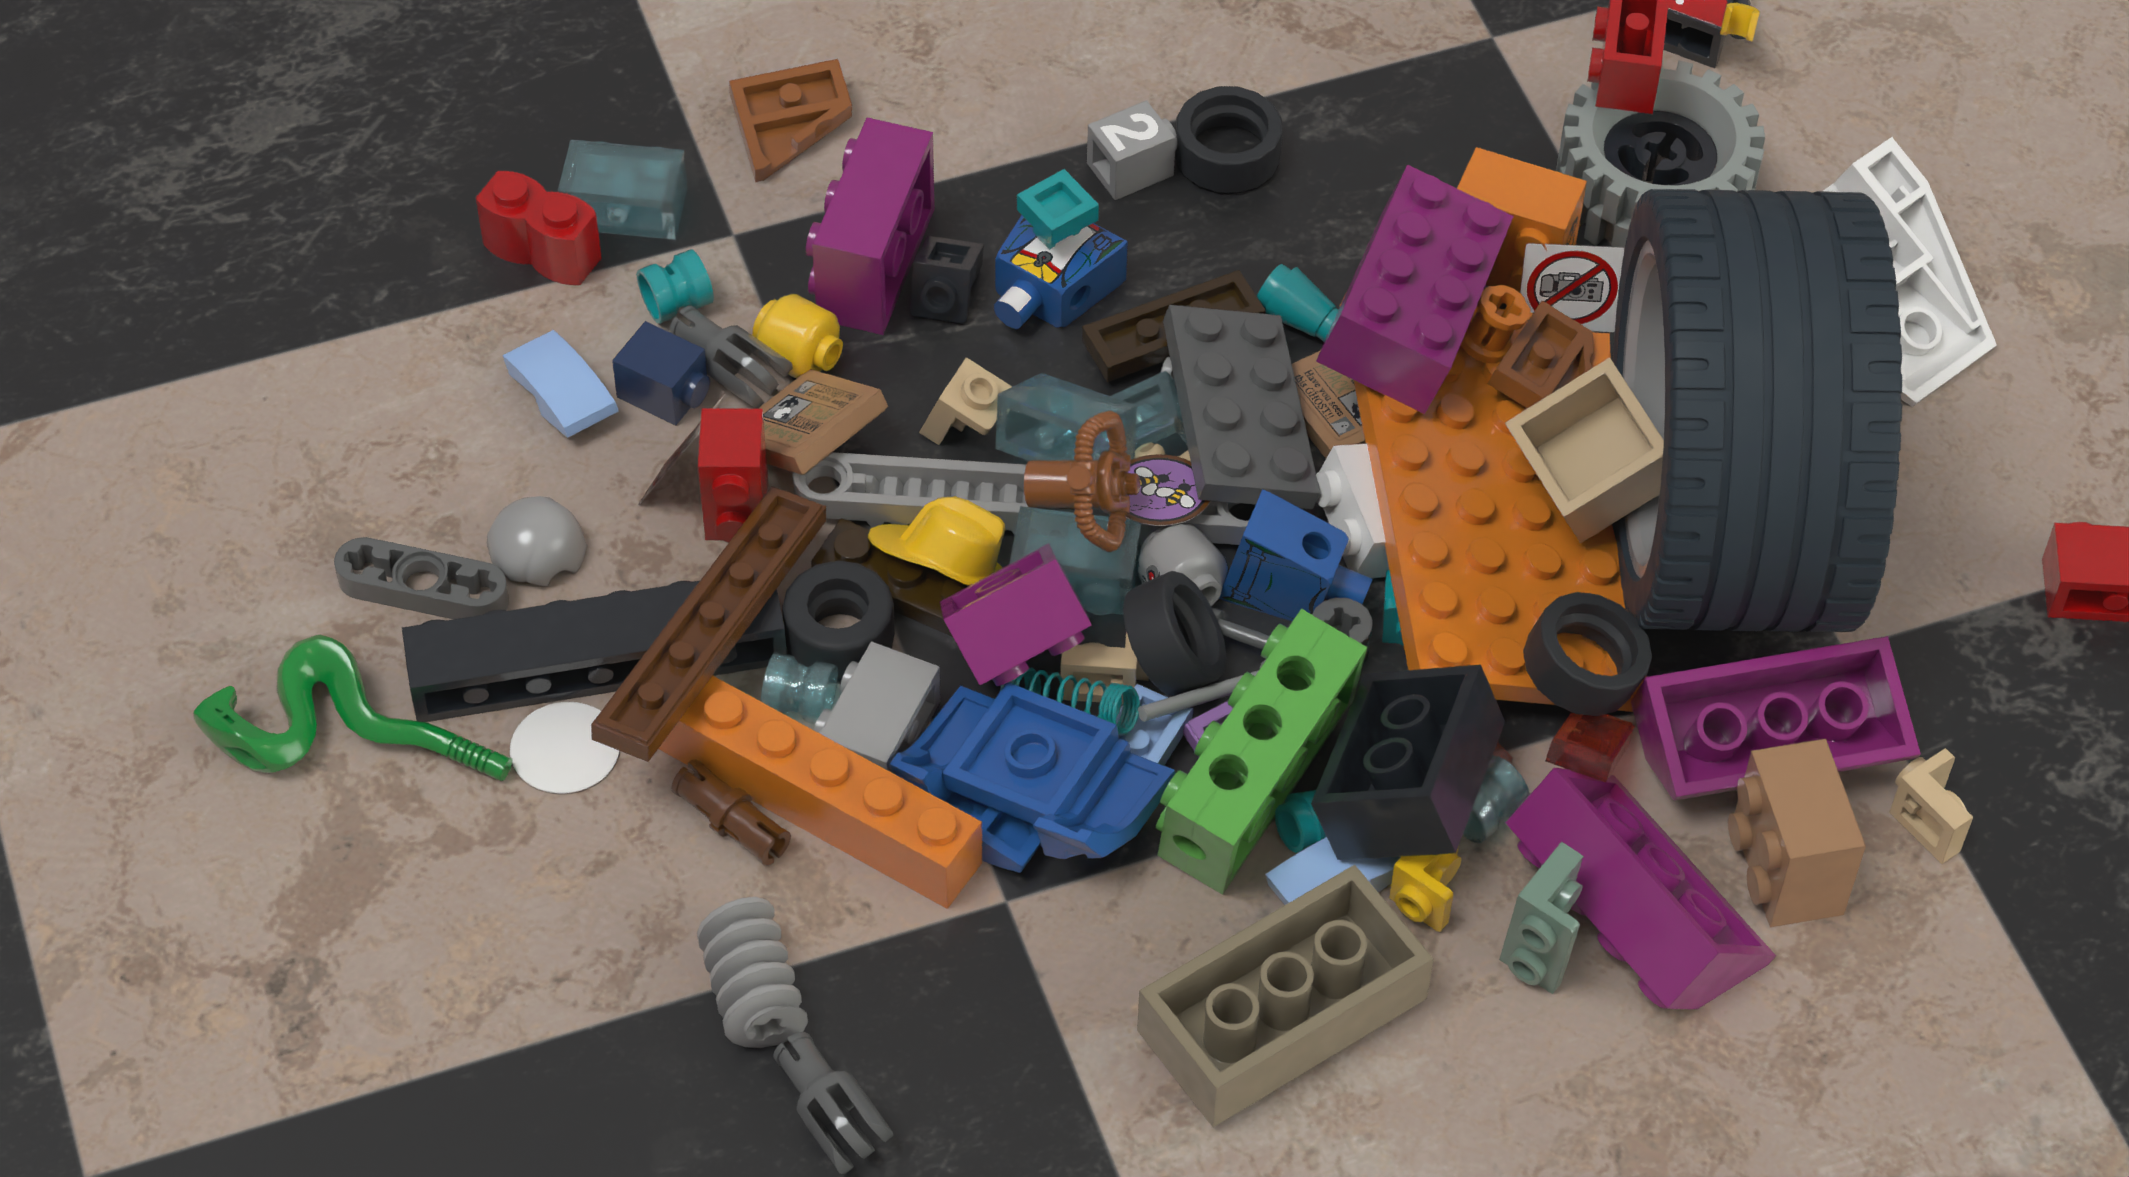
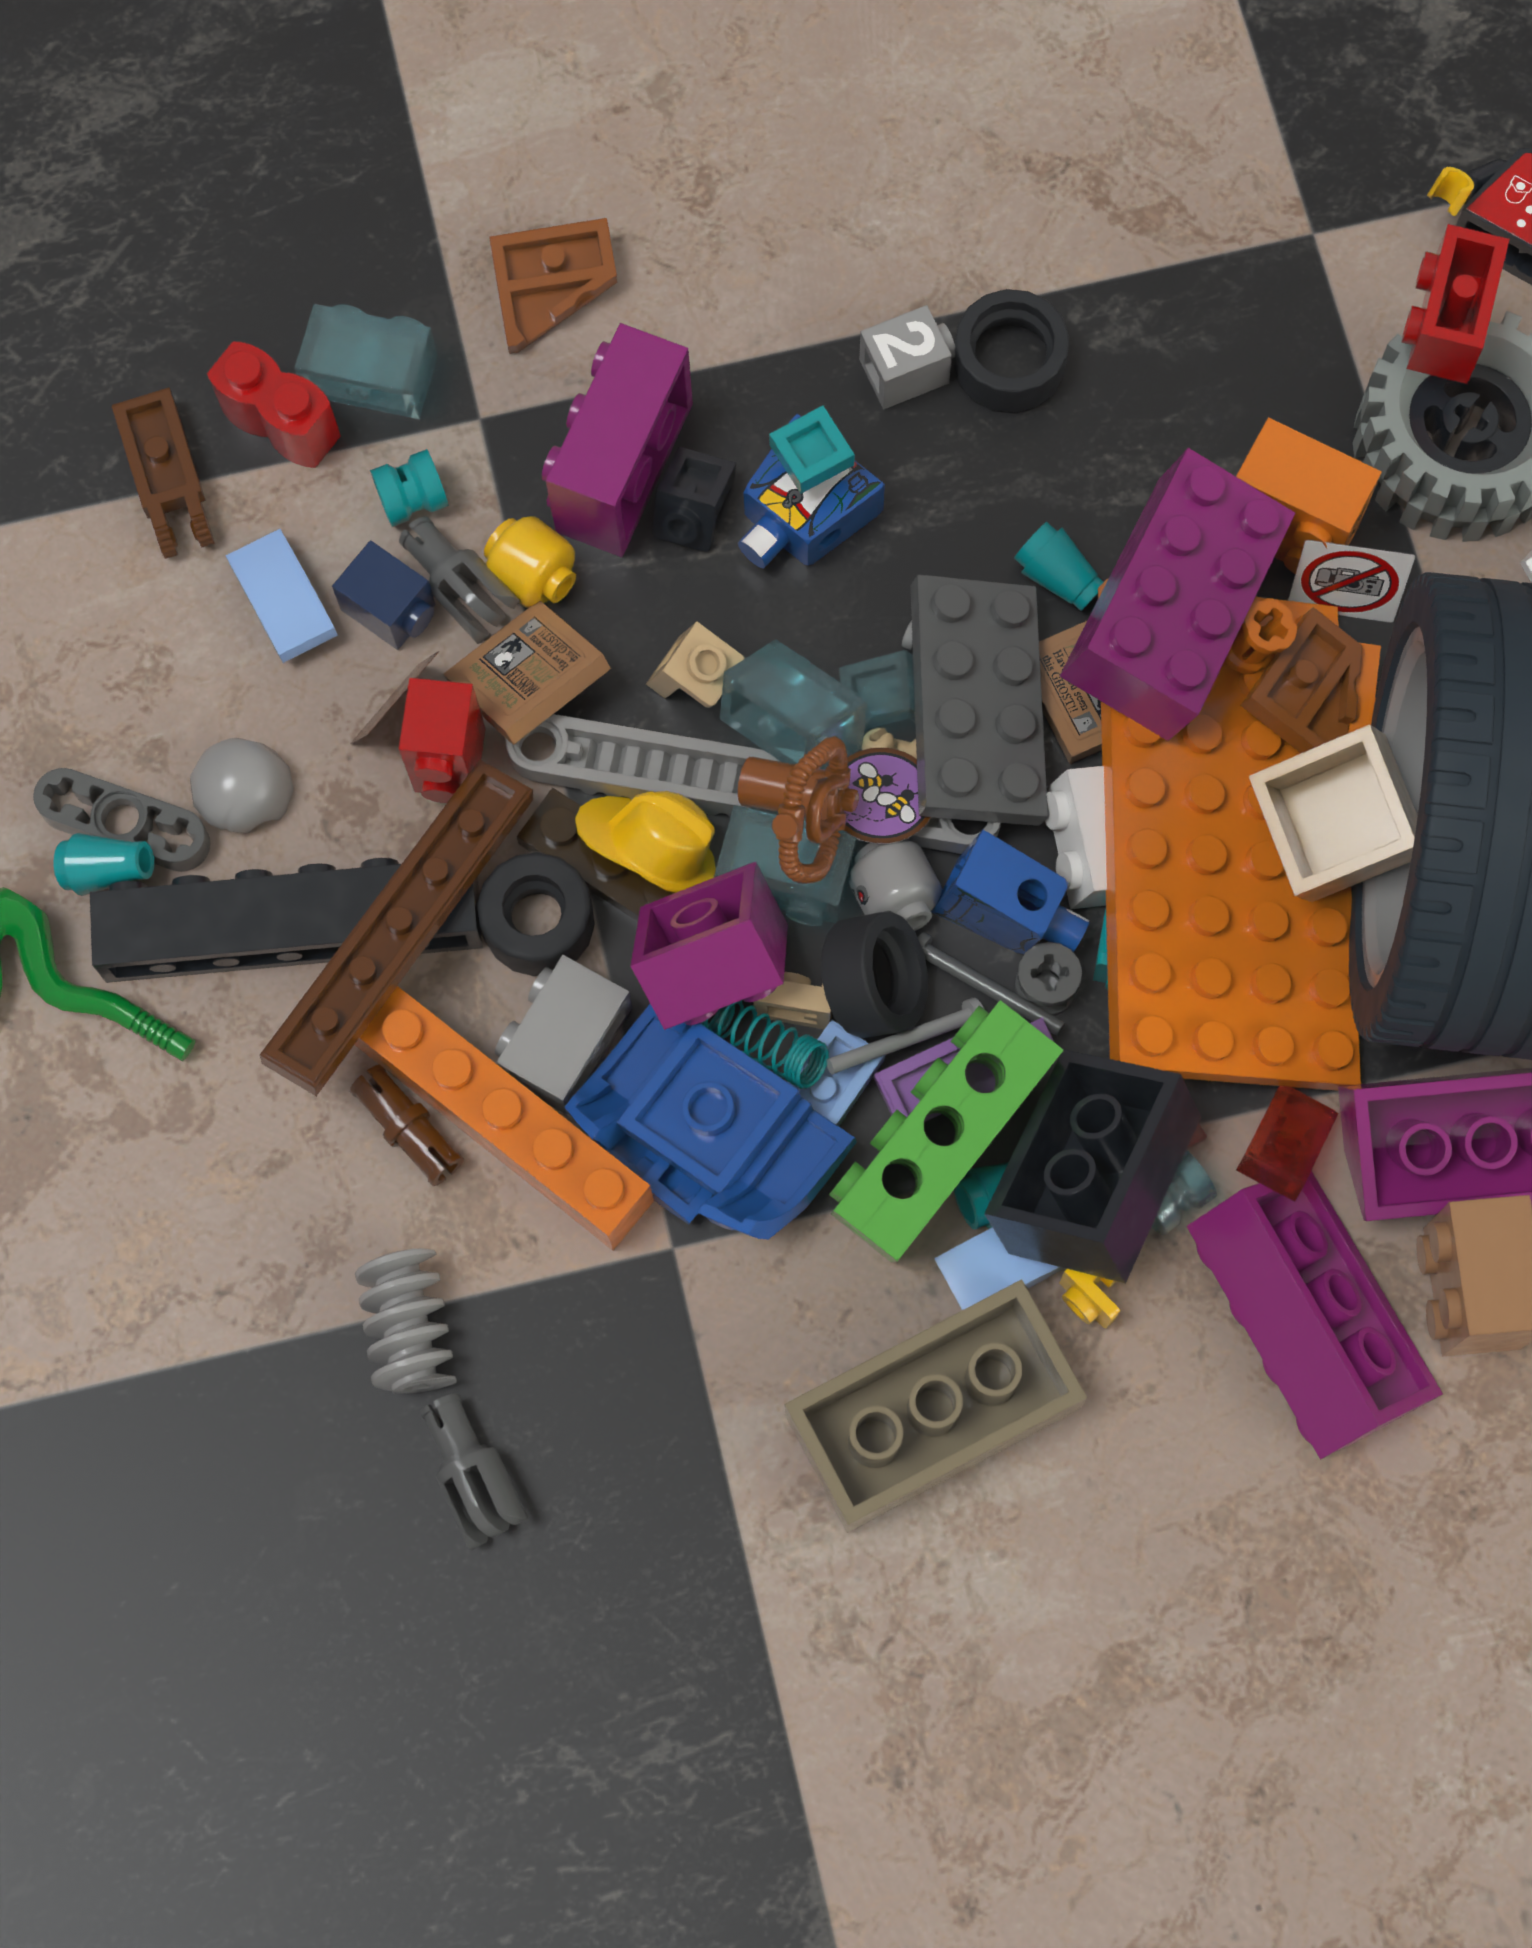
camera: 10 degrees right, 20 degrees up
(406, 606) = (95, 862): none -> teal cone
(434, 289) = (162, 465): none -> reddish brown hinge
(556, 749) = (240, 1021): white sticker -> none
(799, 688) = (480, 989): clear light blue wheel -> none
(1138, 336) = (880, 592): dark brown plate -> none
(1540, 928) = (1196, 1361): sand green bracket -> none
(1610, 628) = (1331, 1021): black tyre -> none

